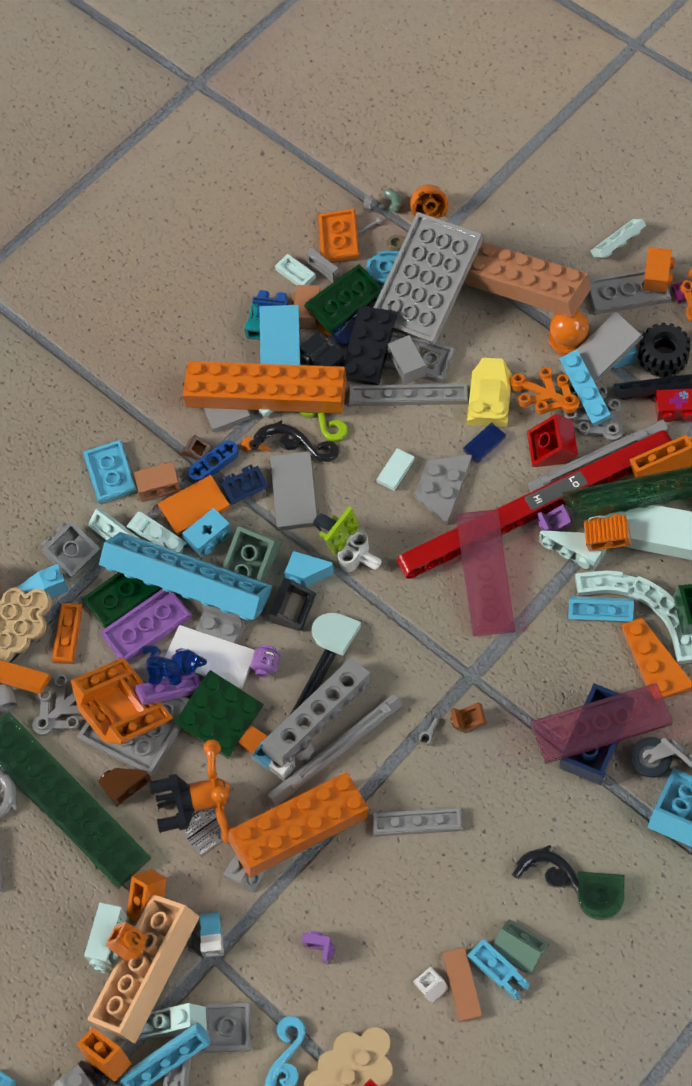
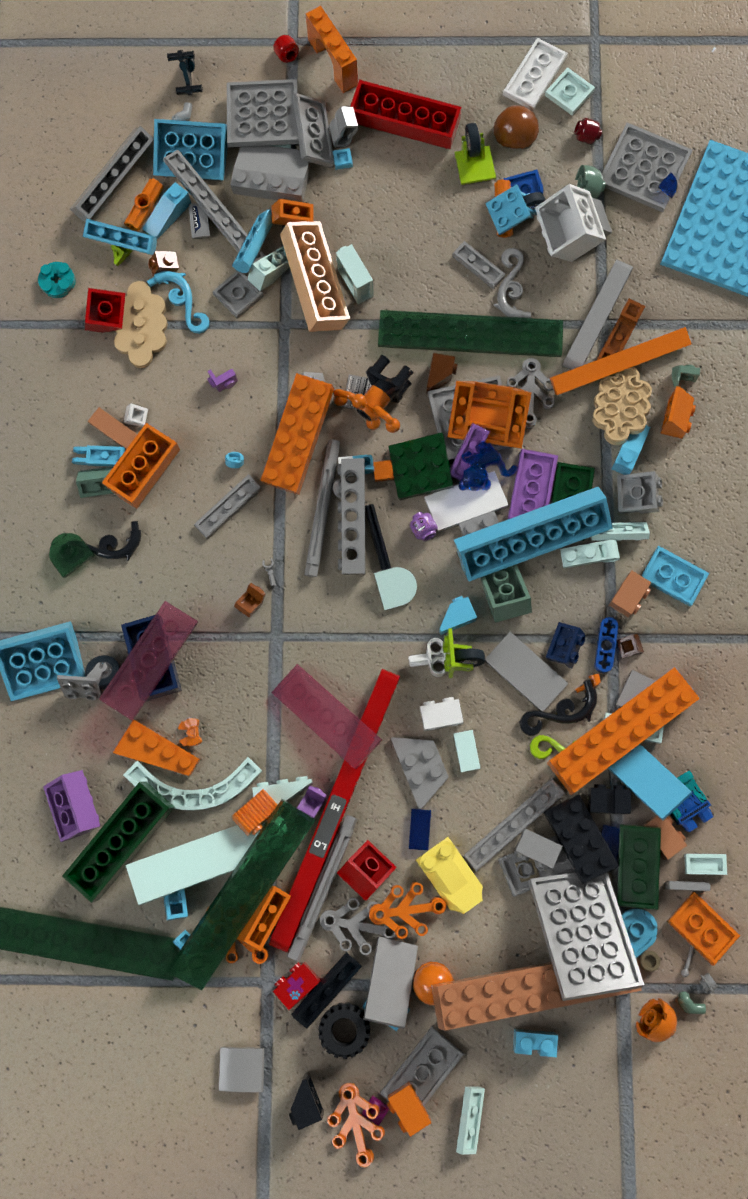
camera: 135 degrees right, 15 degrees up
(67, 633) = (580, 438): orange tile -> none
(126, 941) = (332, 270): orange brick -> none
(141, 890) = (359, 321): orange slope -> none
(193, 503) = (586, 600): orange tile -> none
(207, 533) = (558, 575): medium azure brick -> none
(211, 935) = (294, 332): leg -> none
(281, 601) = (453, 578): black tile -> none
(374, 858) = (234, 460): none -> medium azure tile
(391, 506) = (441, 714): none -> white brick
(465, 916) = (141, 465): none -> orange slope
(521, 242) = (529, 1040): none -> medium azure brick
(585, 387) = (378, 938): medium azure plate -> none
(601, 608) = (222, 758): medium azure plate -> none
(613, 645) = (193, 737): none -> orange piece

